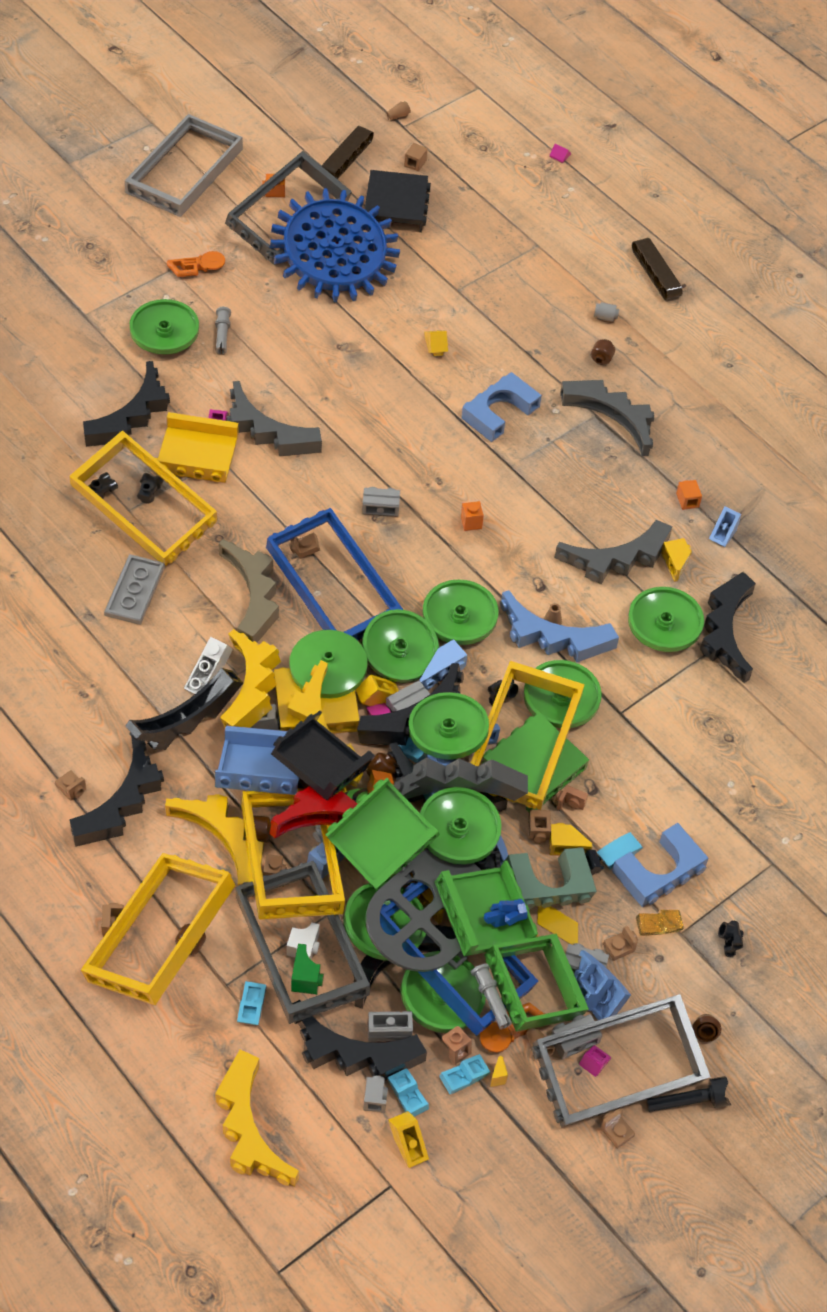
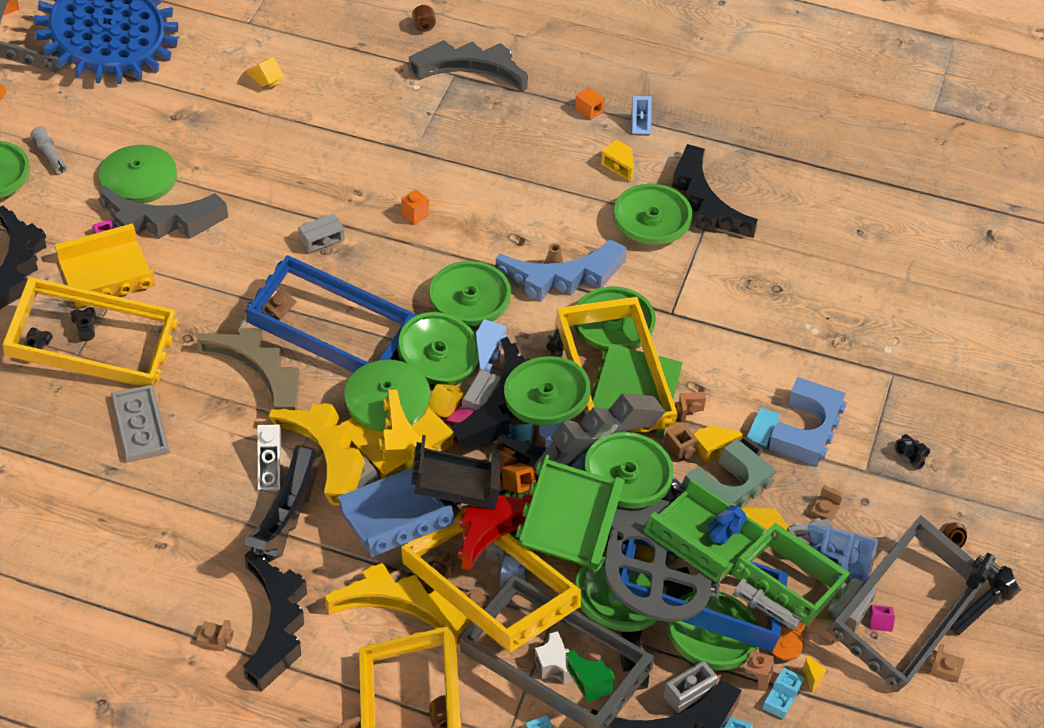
camera: 30 degrees left, 5 degrees down
(276, 382) = (139, 173): none -> bright green dish
(507, 389) = (366, 85): medium blue arch -> none
(621, 558) = (573, 183): dark grey arch -> none
(662, 923) = (843, 471): clear yellow slope -> none
(705, 1069) = (984, 569): none -> black plate

